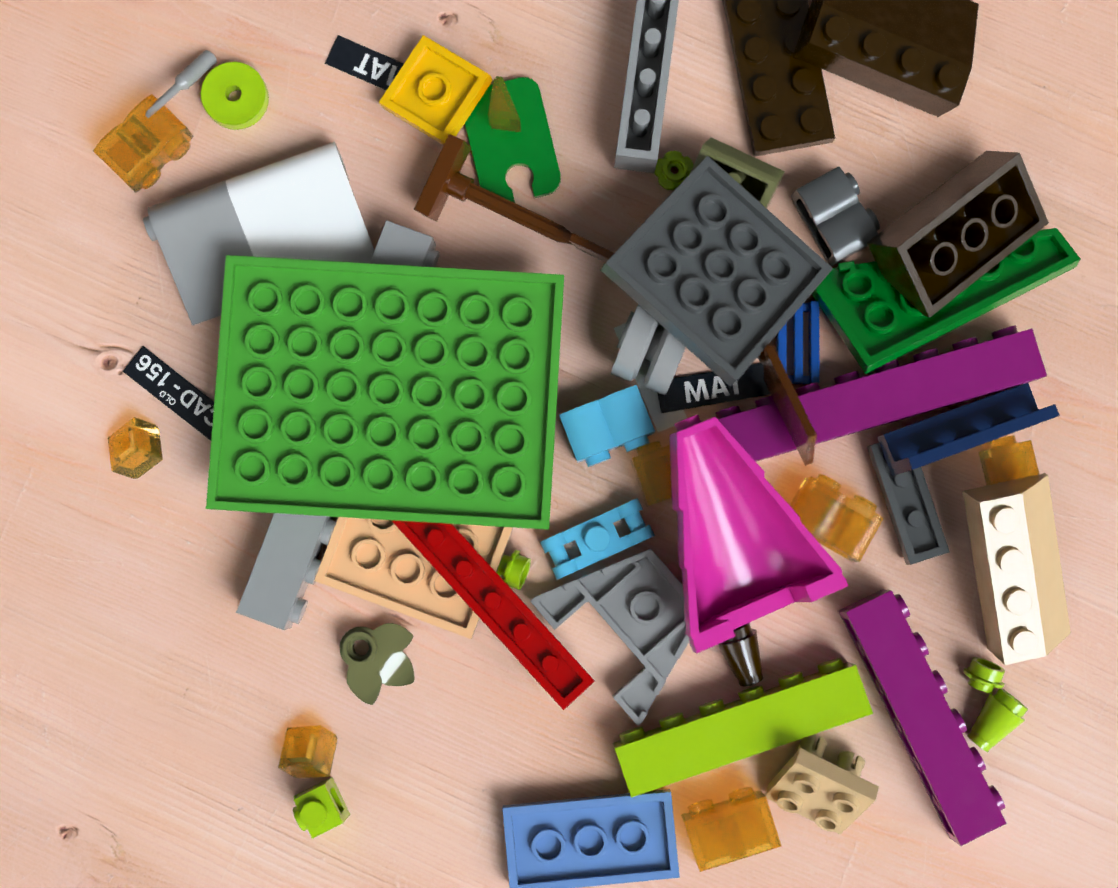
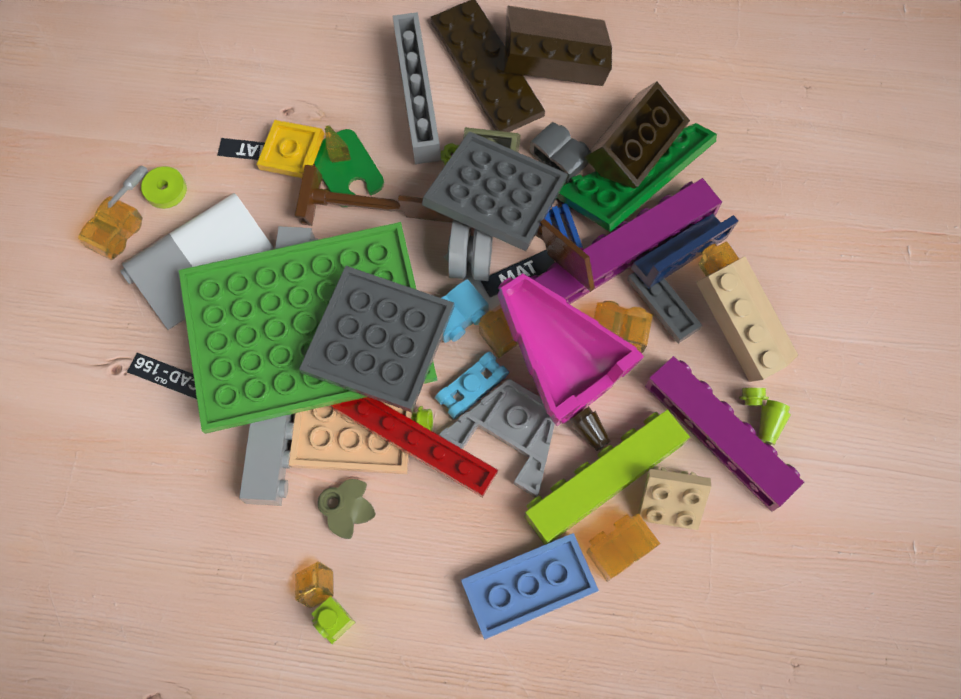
camera: 15 degrees left, 15 degrees down
(135, 448) = (145, 416): clear yellow slope -> none
(481, 450) = (377, 338): none -> dark grey plate

